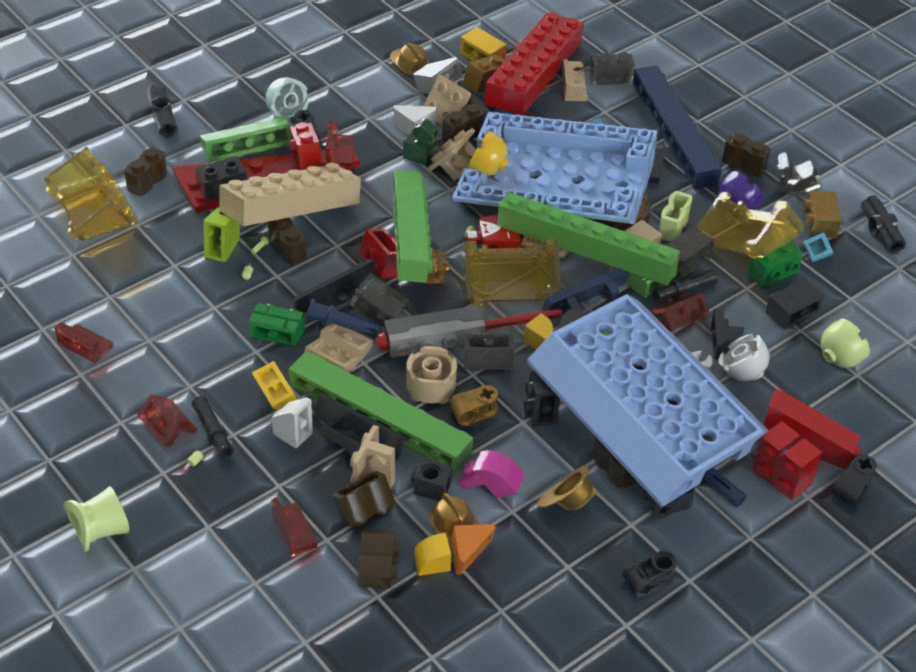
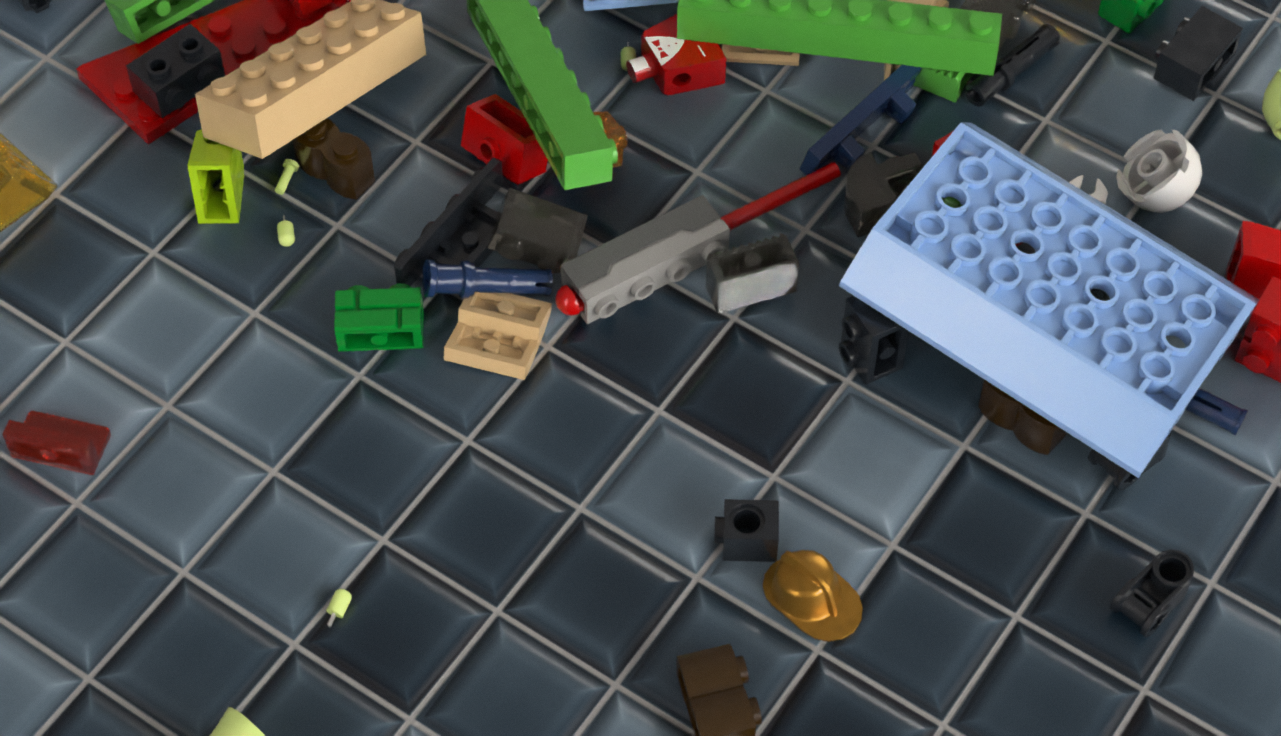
camera: 15 degrees left, 10 degrees up
(145, 171) = (34, 89): dark brown brick -> none
(165, 419) = (262, 548): clear red panel -> none
(215, 433) = (359, 550): black pin -> none
(274, 385) = (428, 439): yellow hinge -> none
(293, 422) = (481, 492): white slope -> none
(293, 527) = (555, 681): clear red panel -> none
(348, 426) = (588, 477): black bracket -> none
(363, 499) = (655, 599): dark brown brick -> none
(373, 457) = (648, 530): tan bracket -> none
(422, 432) = (614, 429): bright green brick -> none
(431, 375) = (675, 342): tan brick -> none
(433, 555) = (802, 663): yellow brick -> none
(468, 543) = (850, 629): orange slope -> none
(472, 406) = (763, 375): pearl gold piece -> none
(495, 471) = (844, 487): dark pink brick -> none
(511, 273) = (732, 118): clear yellow windscreen -> none
(537, 331) = (819, 217): yellow brick -> none
(571, 492) = (974, 487): pearl gold piece -> none
(683, 310) = (1025, 109): clear red panel -> none
(722, 333) = (1103, 139): black slope -> none

